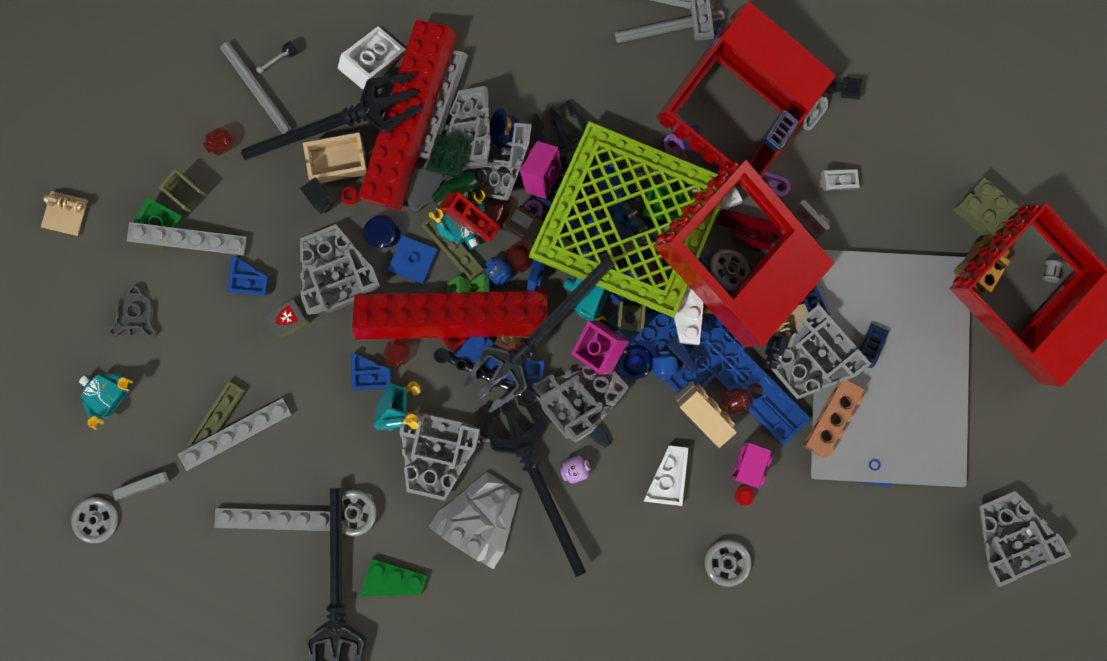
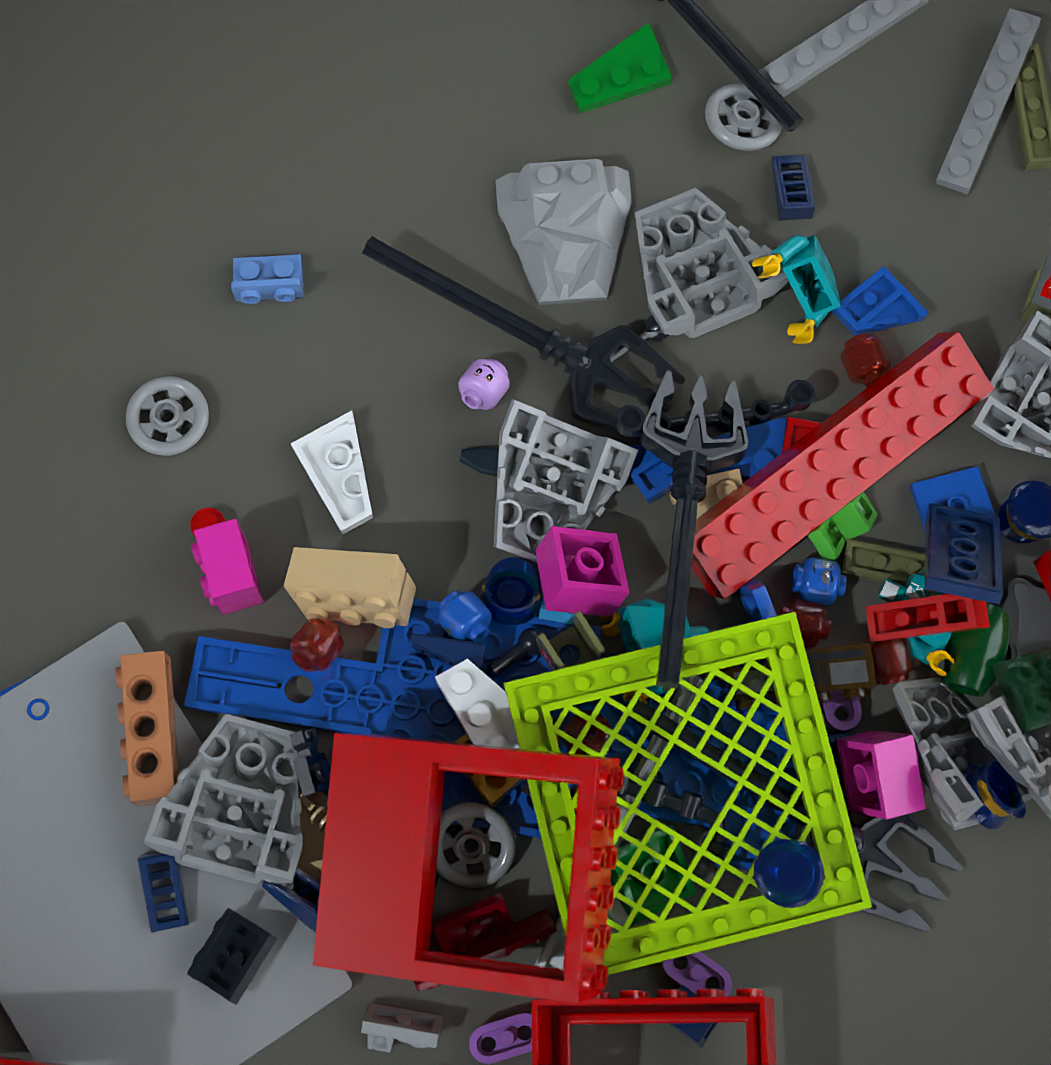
camera: 140 degrees right, 10 degrees down
(362, 445) = (797, 209): none -> dark blue slope
(433, 230) = (963, 553): none -> dark blue tile
(614, 155) = (789, 873): none -> clear blue piece
(634, 598) = (267, 278): none -> medium blue bracket
(644, 335) = (526, 646): none -> black bar
(862, 295) = (231, 955): none -> black bracket

